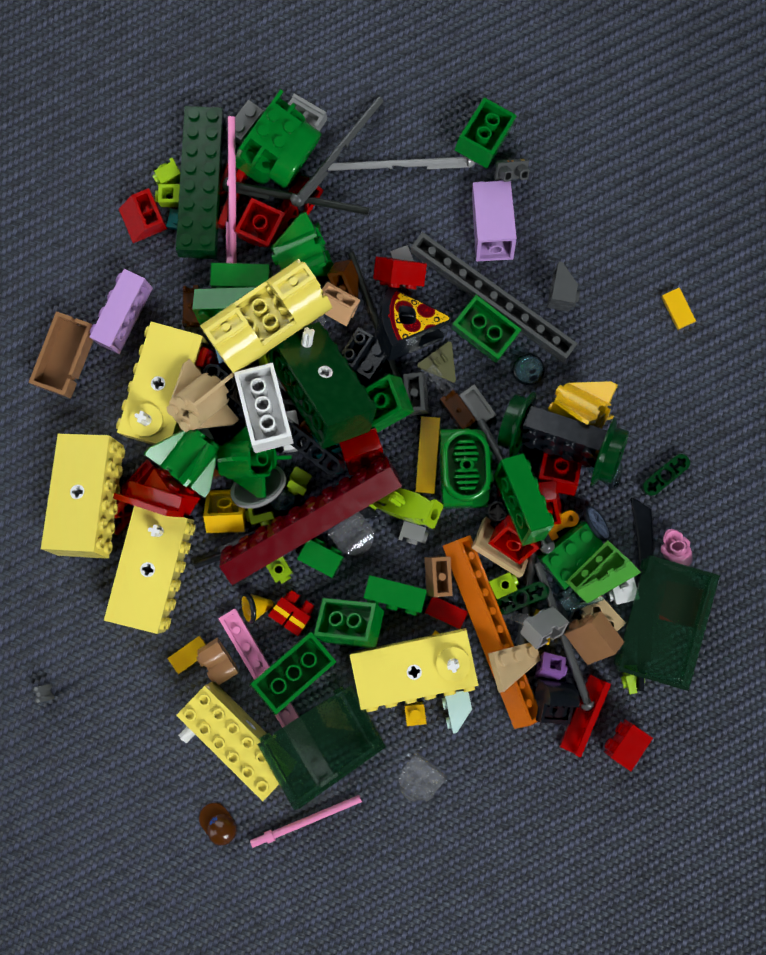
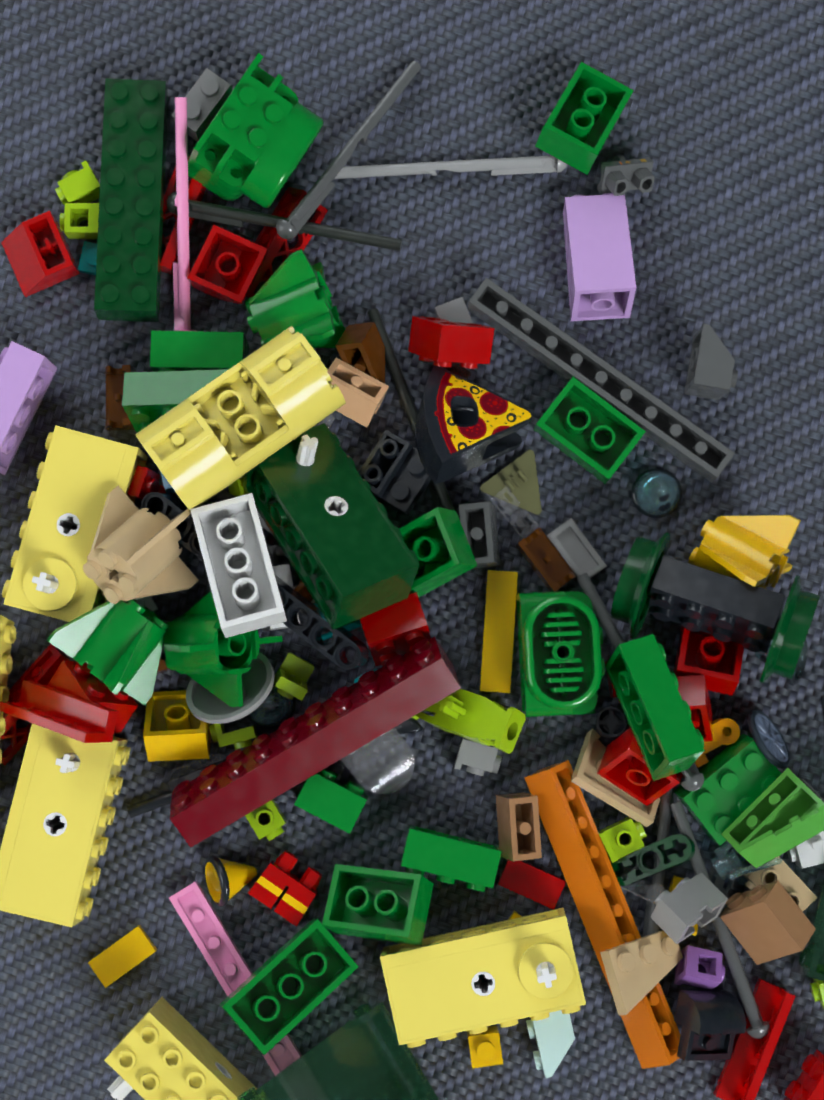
camera: 10 degrees left, 0 degrees up
(217, 661) = (167, 967): medium nougat brick -> none
(312, 113) = (309, 90): light grey hinge -> none

